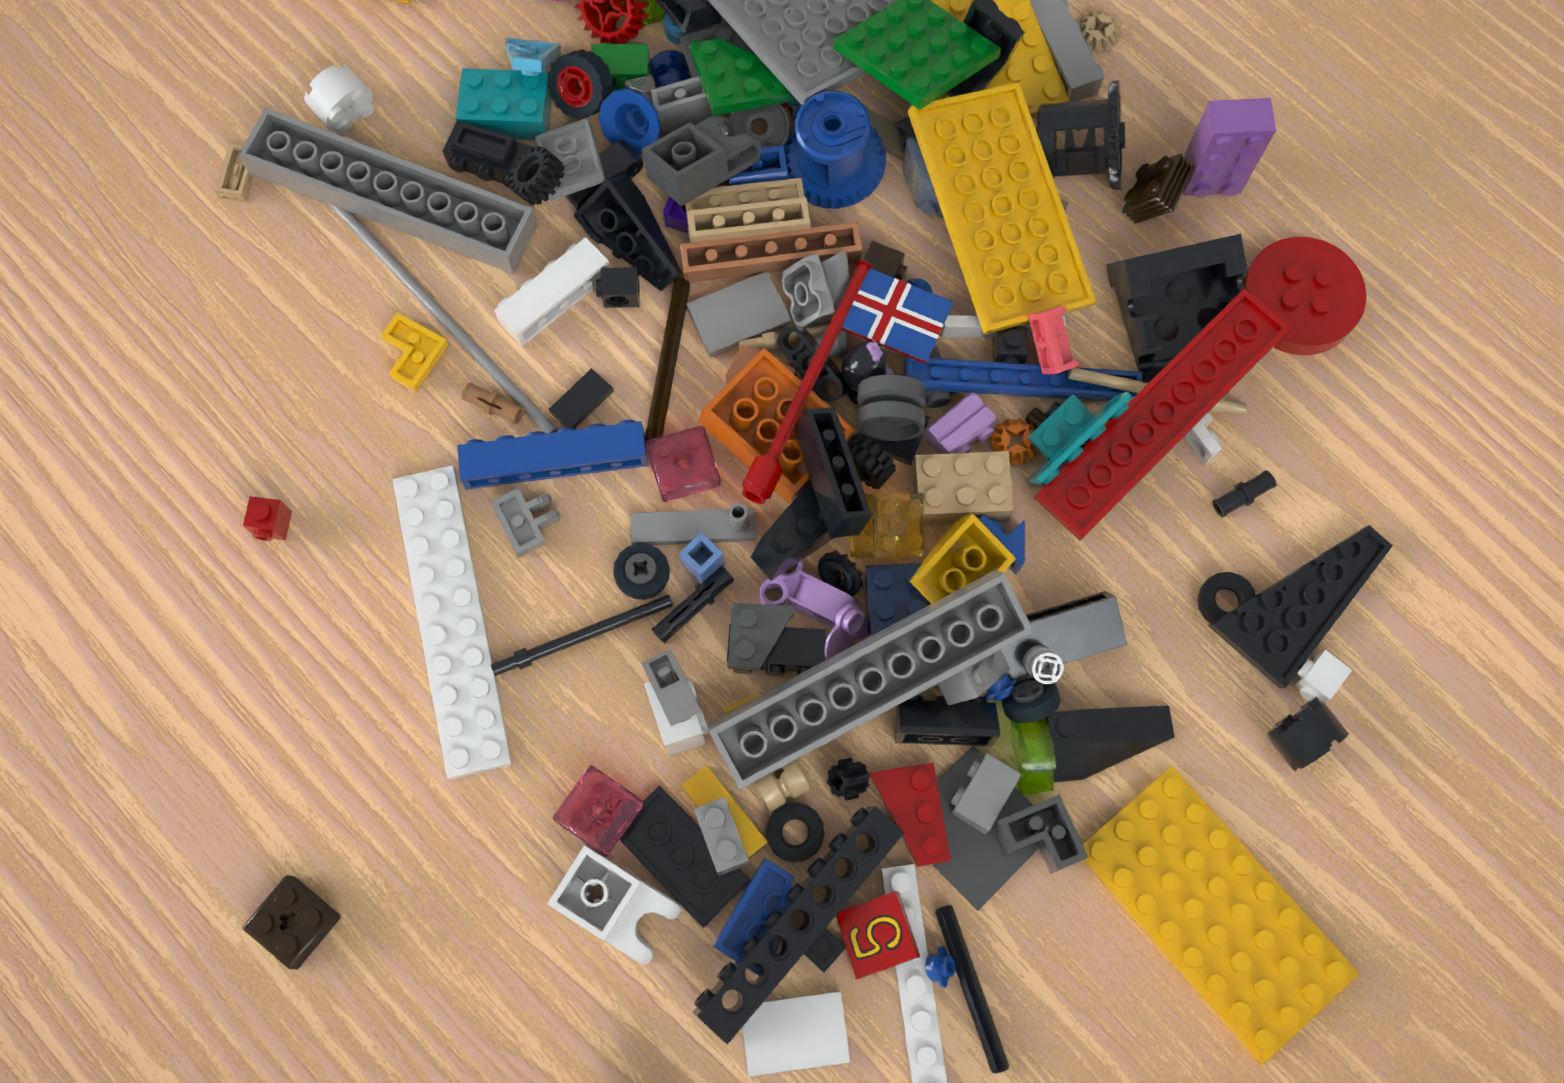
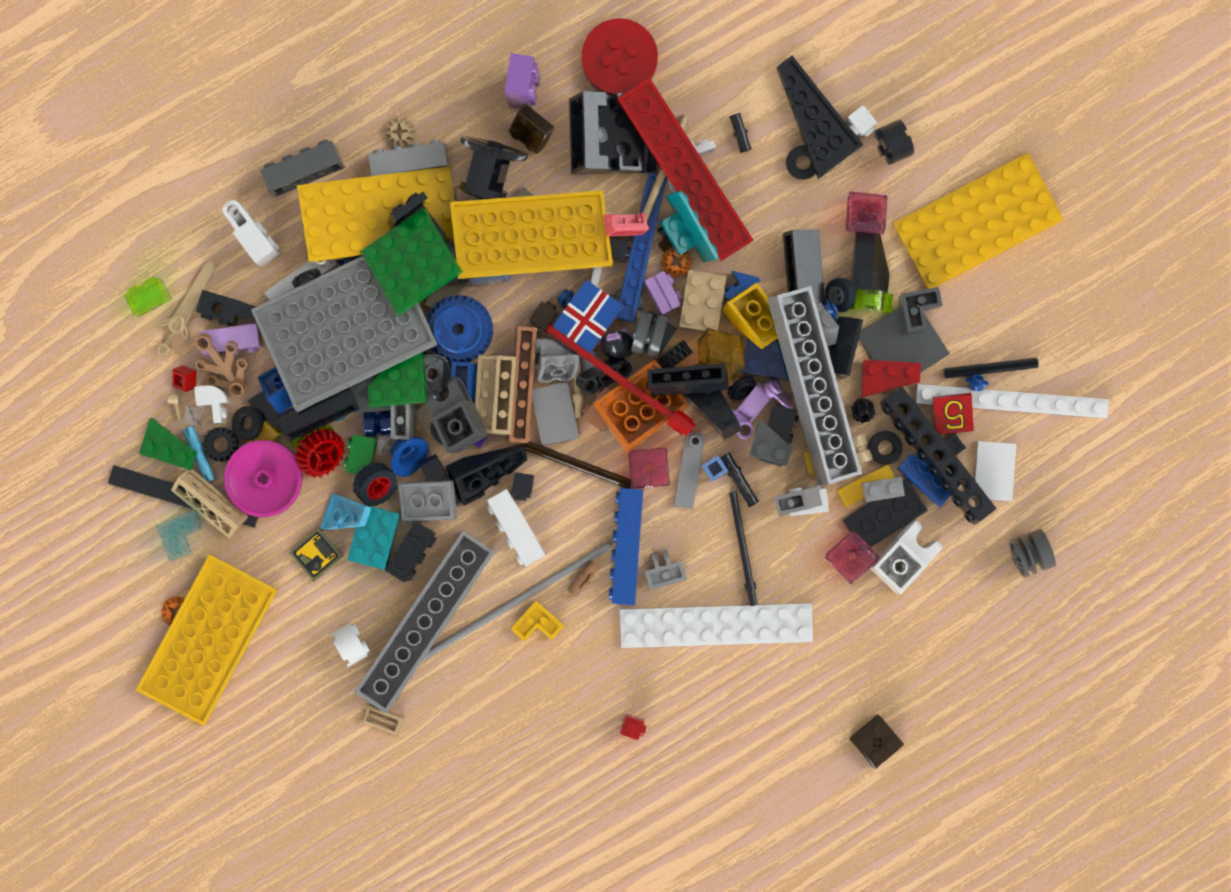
camera: 75 degrees left, 15 degrees up
(467, 40) = (316, 554): none -> tile
(536, 175) = (437, 531): black tyre -> none
(581, 399) = (592, 523): black tile -> none
(650, 579) = (712, 506): black wheel -> none
(985, 794) = (887, 334): light grey brick -> none
(1037, 660) = (823, 283): white wheel -> none
(1163, 727) = (875, 206): none -> clear pink brick

